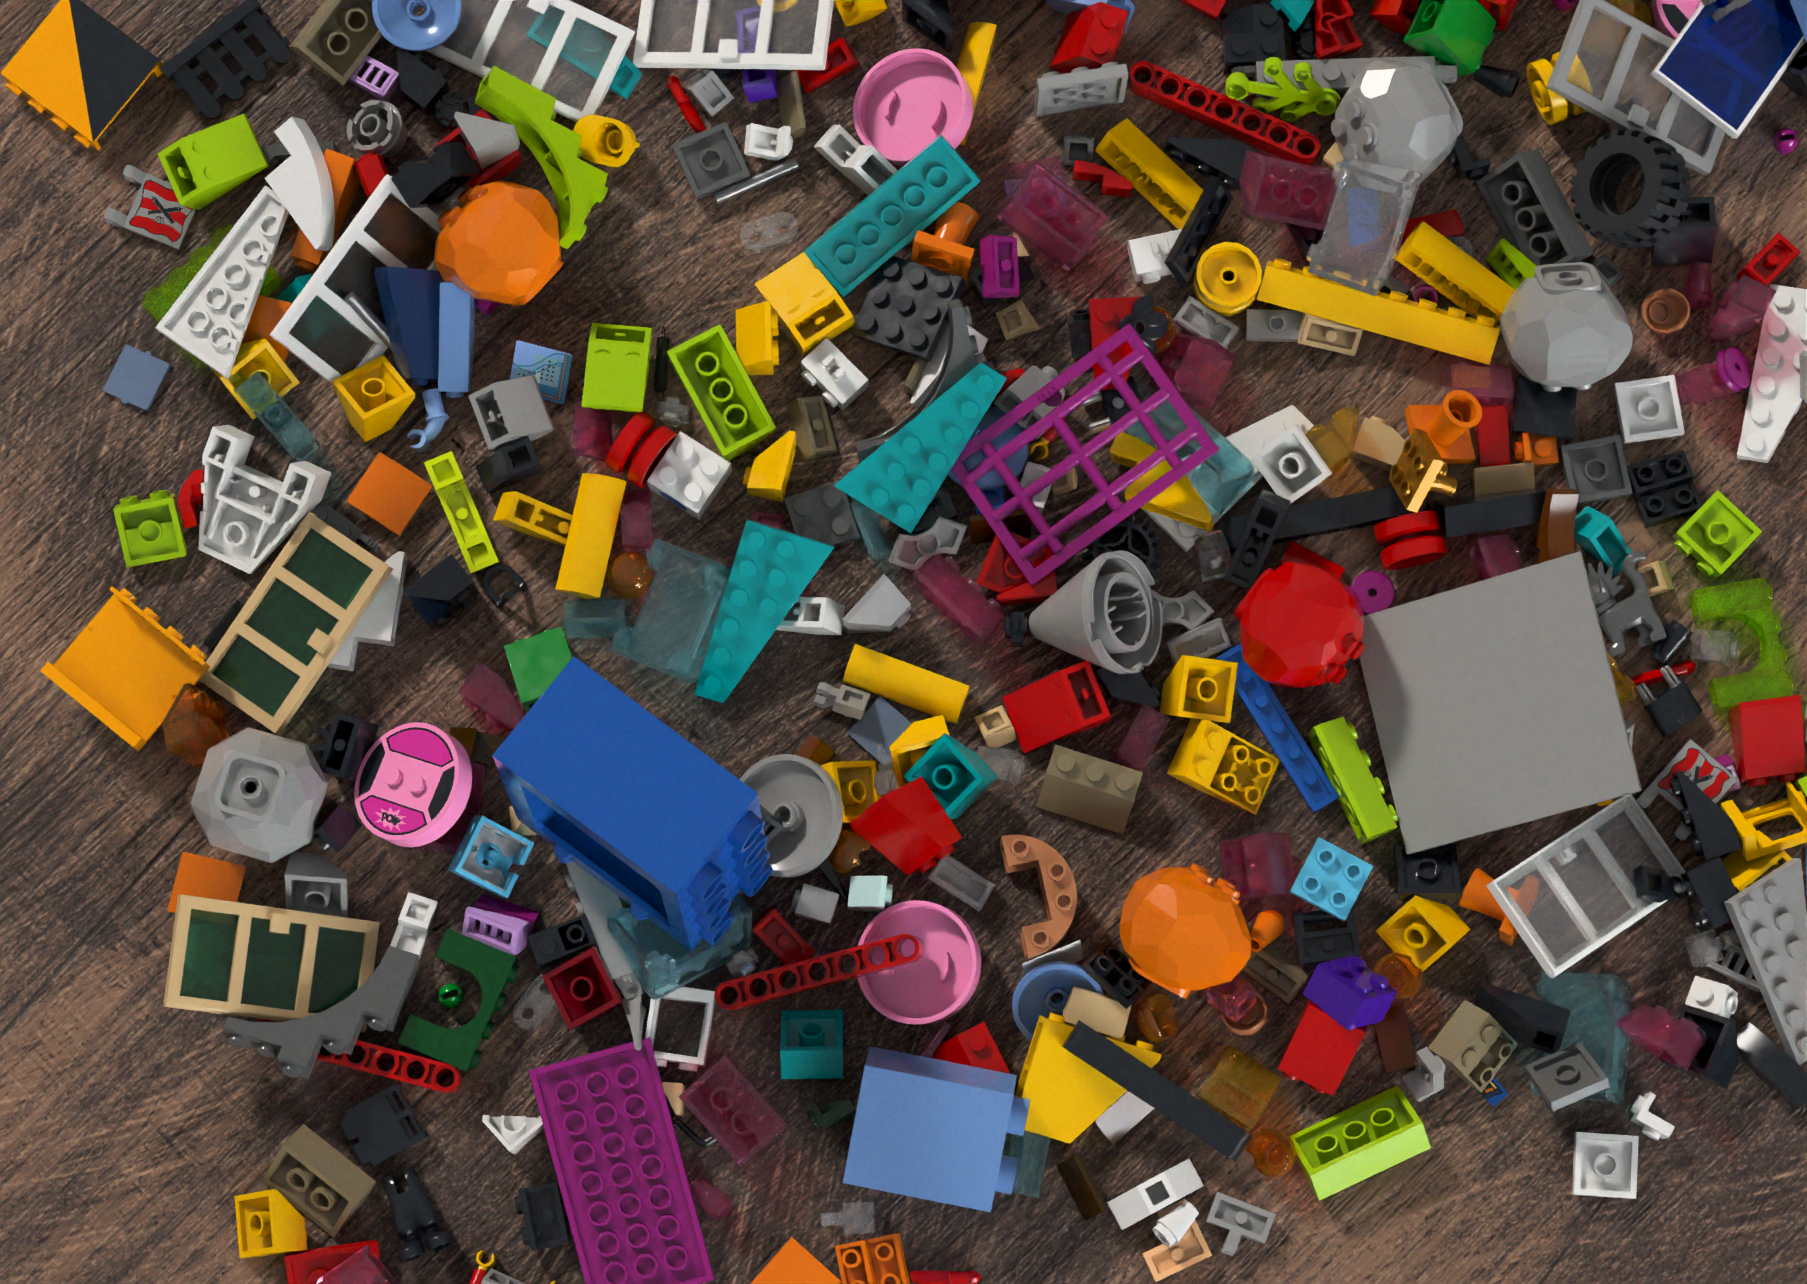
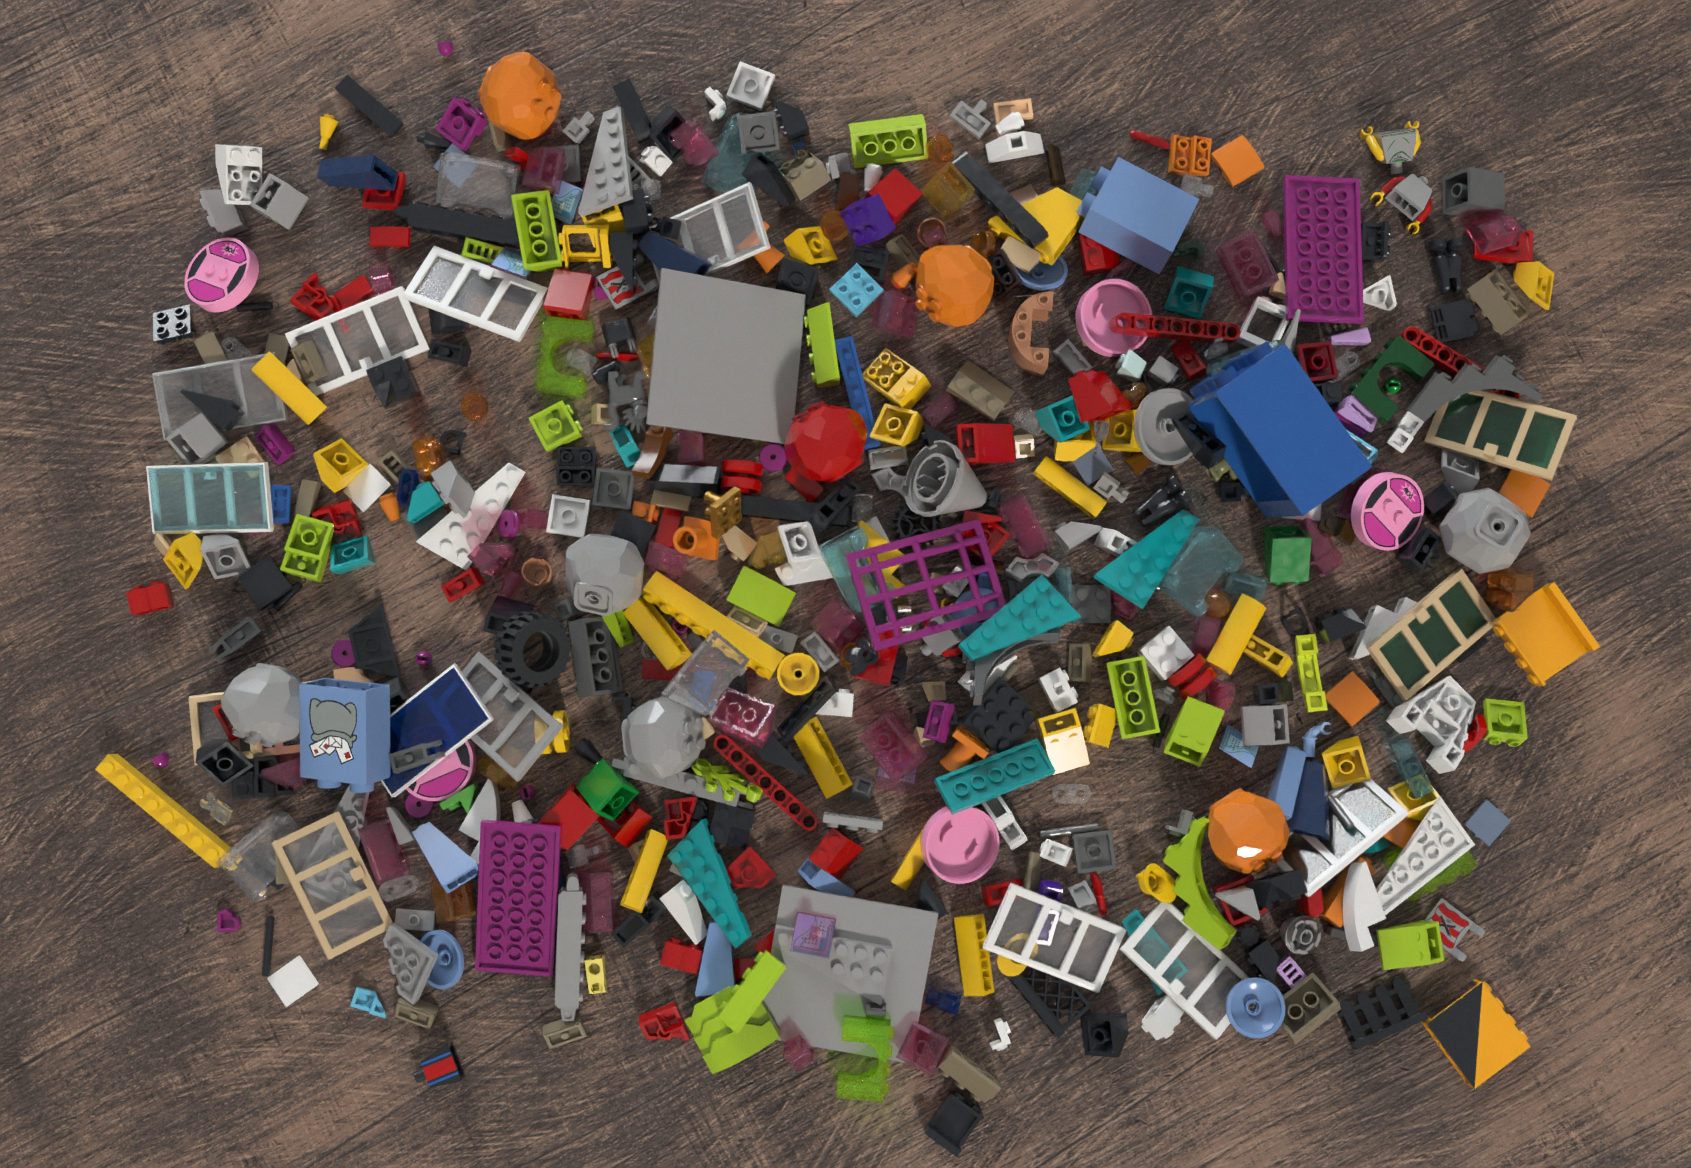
camera: 165 degrees left, 5 degrees up
(532, 1051) = (1356, 337): none -> lavender slope
(588, 243) = (1183, 825): none -> light grey bracket
(762, 698) = (1160, 504): none -> black piece
(1112, 182) = (850, 760): red slope -> none
(1320, 377) = (761, 596): none -> lime slope
(1365, 1078) = (872, 176): none -> white cone
(1520, 1127) = (792, 120): none -> black slope
(1628, 837) = (671, 255): none -> dark blue slope

